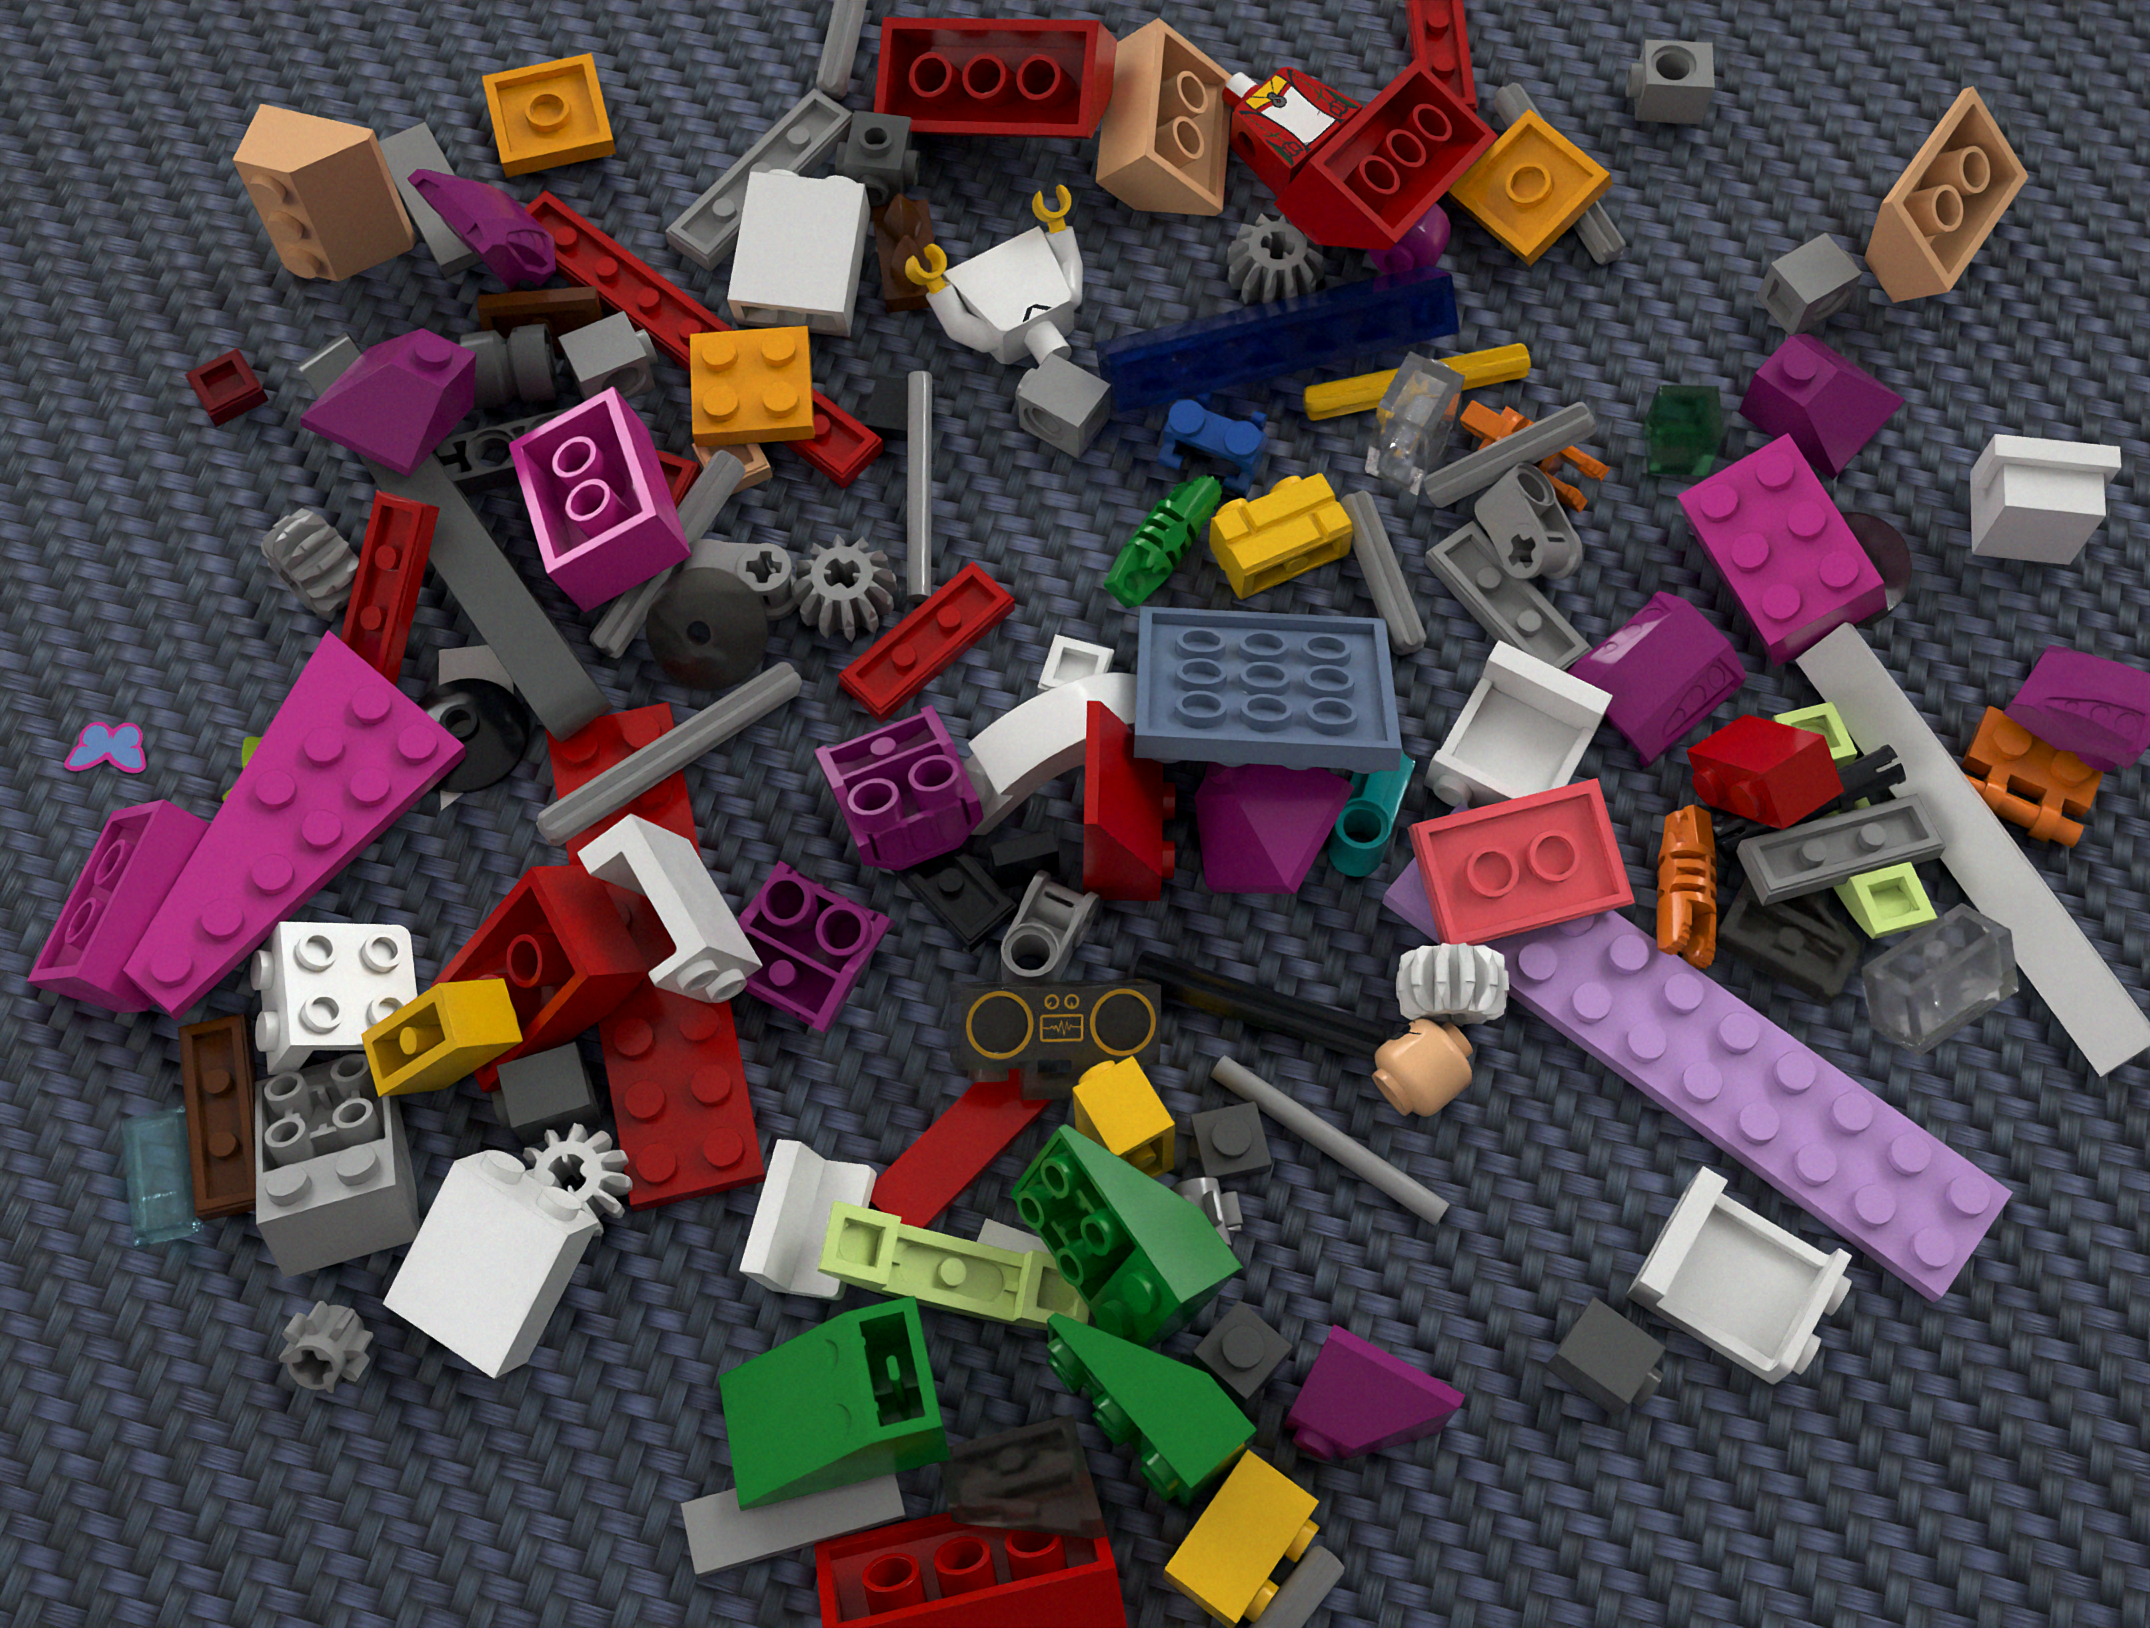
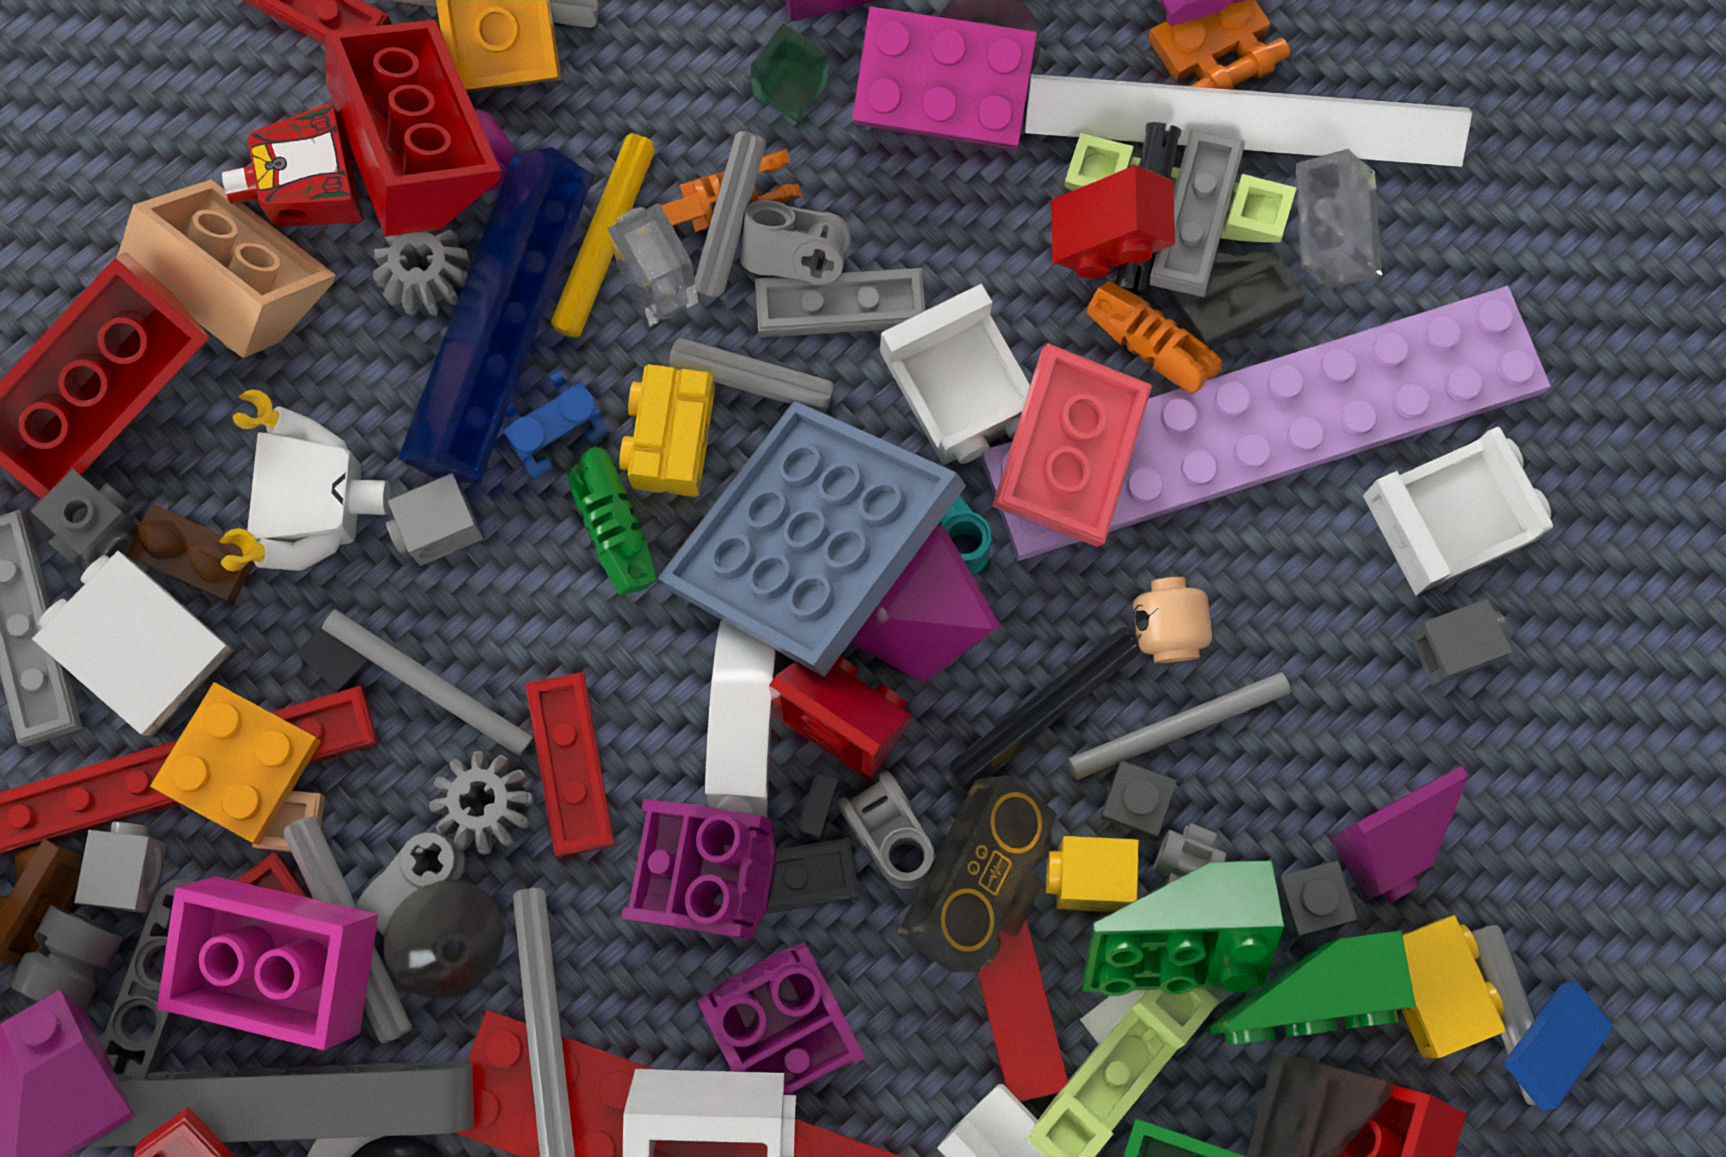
camera: 60 degrees left, 10 degrees up
(1073, 660) = (677, 664): white tile -> none
(1452, 984) = (1130, 558): white gear -> none
(1663, 673) = (974, 234): magenta slope -> none

